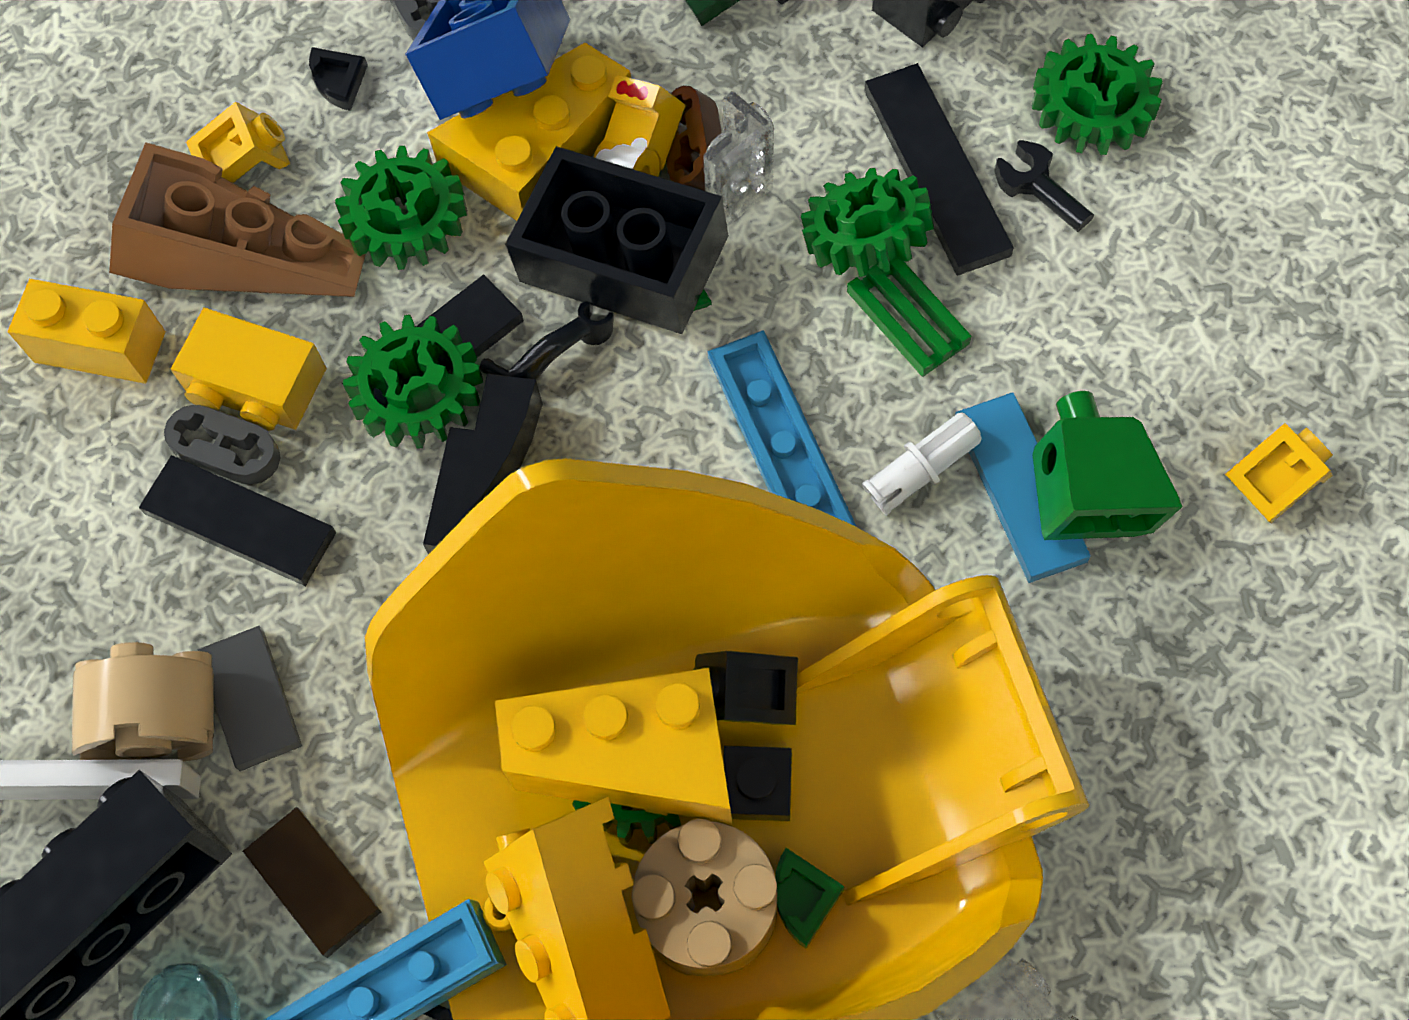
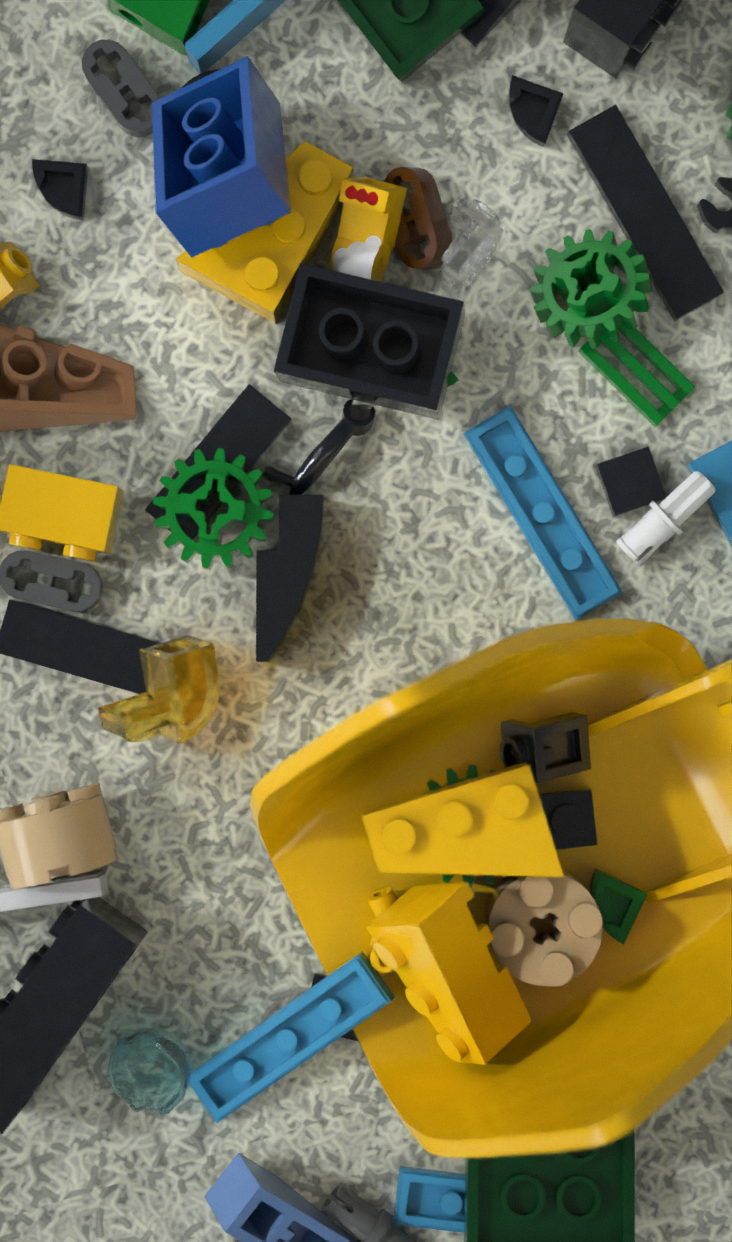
camera: 15 degrees left, 20 degrees up
(251, 699) = (132, 803): dark grey tile -> none
(312, 882) = (219, 946): dark brown tile -> none
(332, 570) = (179, 697): none -> clear yellow brick
(377, 223) = (139, 336): green gear -> none
(833, 61) = (533, 108): none -> black tile
(885, 424) = (630, 481): none -> black tile

